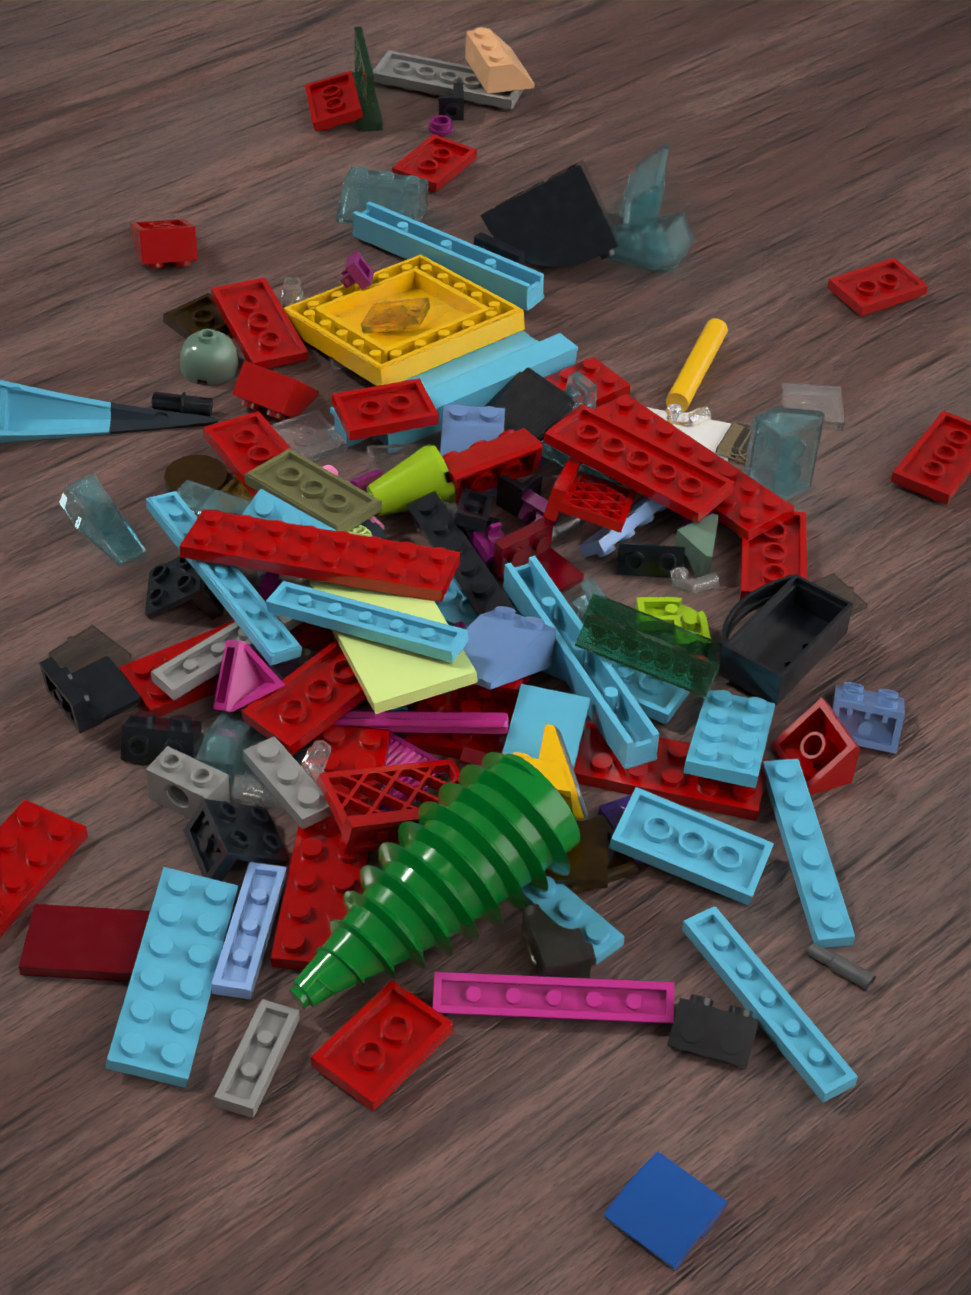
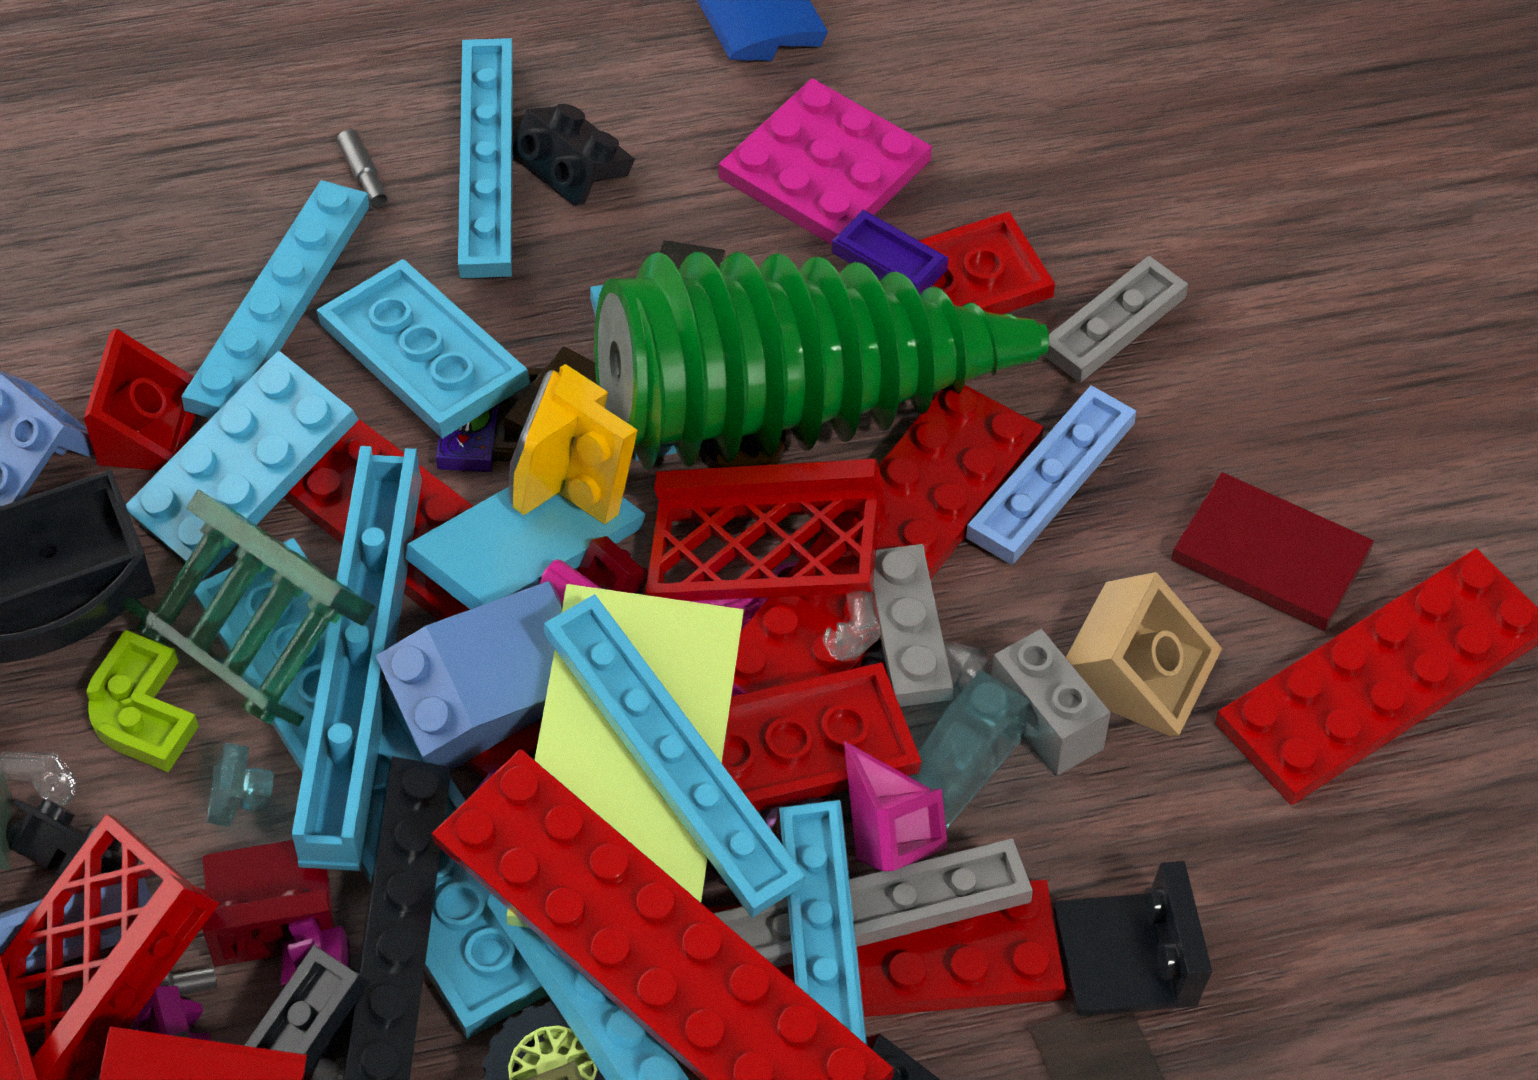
camera: 150 degrees left, 10 degrees up
(145, 835) = (1144, 653): none -> tan slope
(147, 736) = (1049, 825): black bracket -> none
(172, 978) = (1172, 456): medium azure plate -> none
(232, 832) = (1013, 593): black bracket -> none
(436, 1021) = (889, 250): none -> dark purple tile
(534, 1109) = (824, 161): none -> dark pink plate
(554, 997) = (674, 221): dark pink plate -> none

